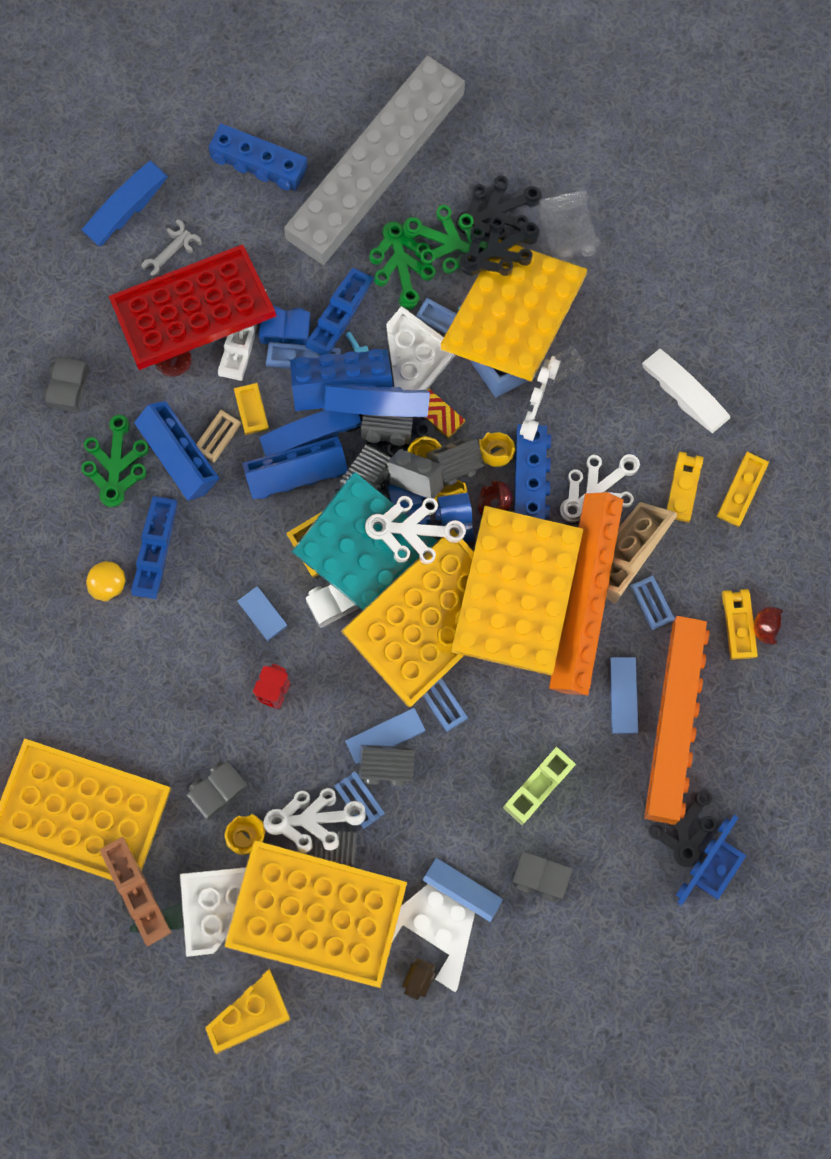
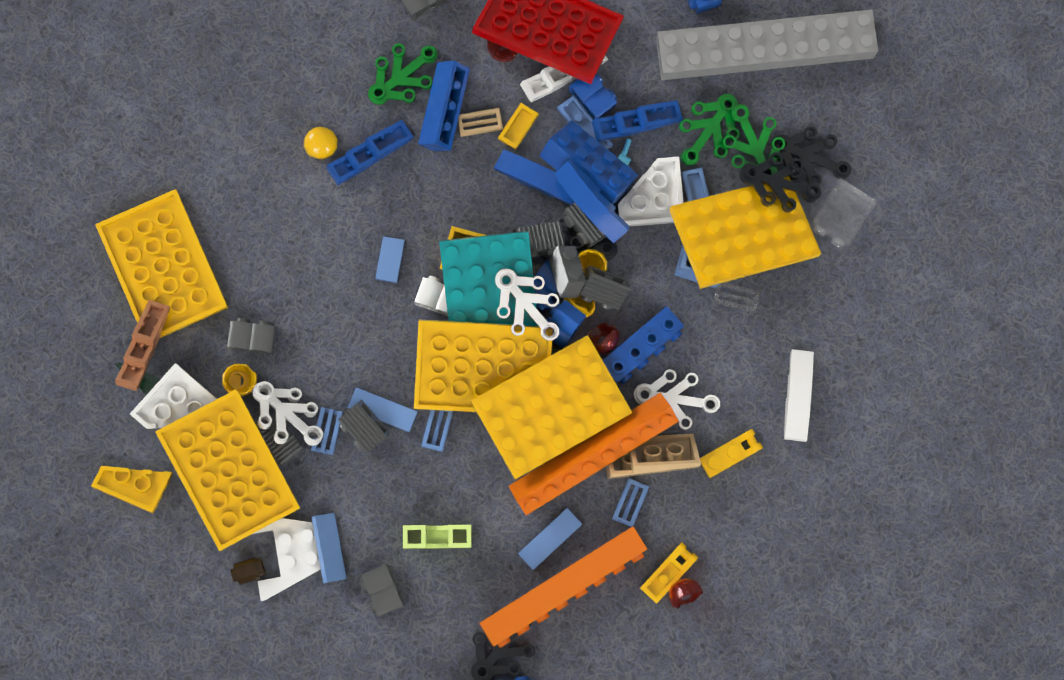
camera: 50 degrees right, 5 degrees up
(272, 686) = (346, 309): red brick -> none
(295, 468) = (502, 191): blue brick -> none
(443, 416) = (629, 250): tile -> none
(495, 440) = (637, 315): yellow hair -> none
(548, 370) = (723, 293): white plant -> none
(742, 489) = (766, 494): yellow tile -> none

